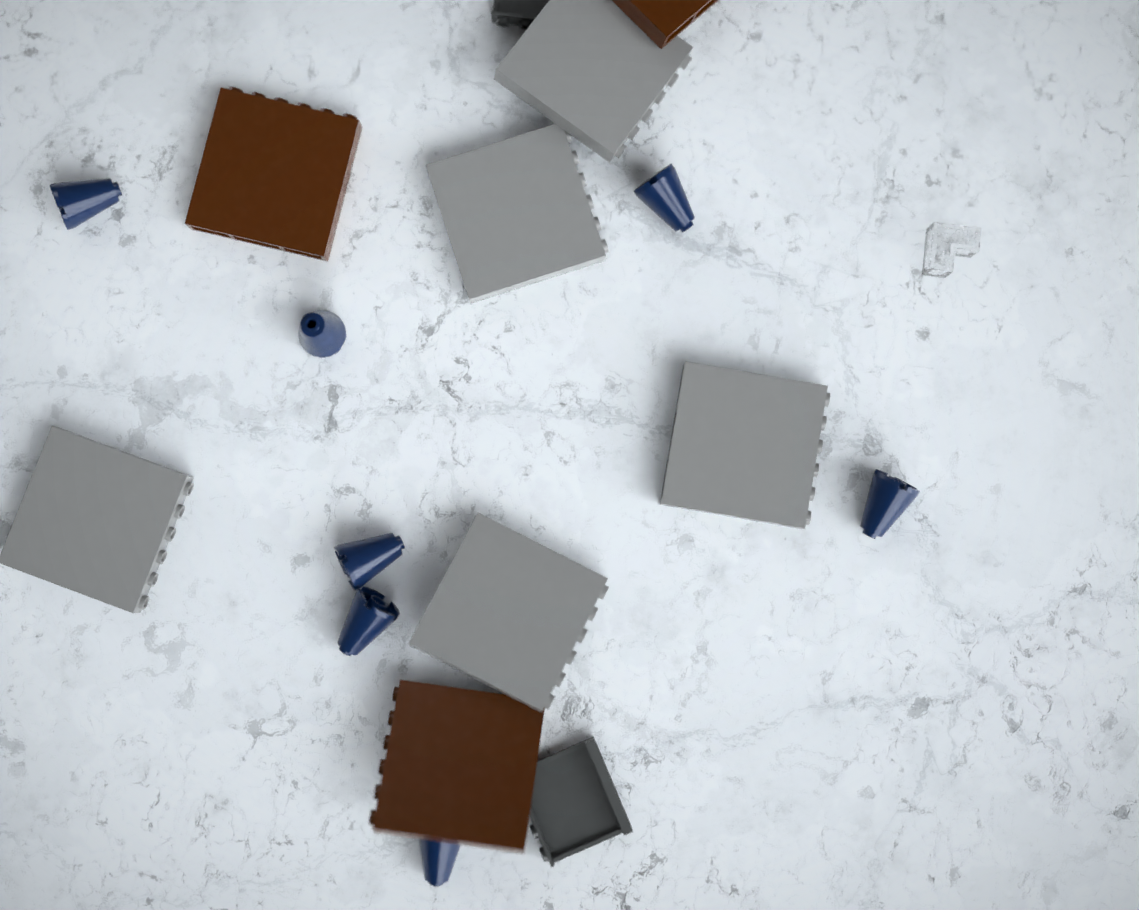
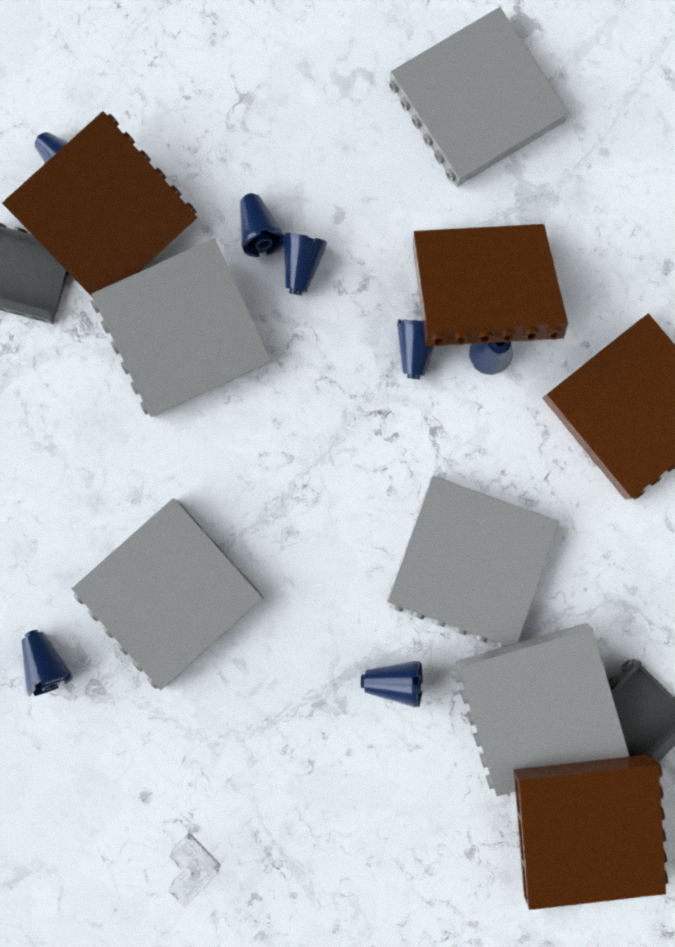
camera: 125 degrees right, 0 degrees up
(267, 375) = (488, 285): none -> reddish brown brick
(365, 399) = (413, 348): none -> dark blue cone

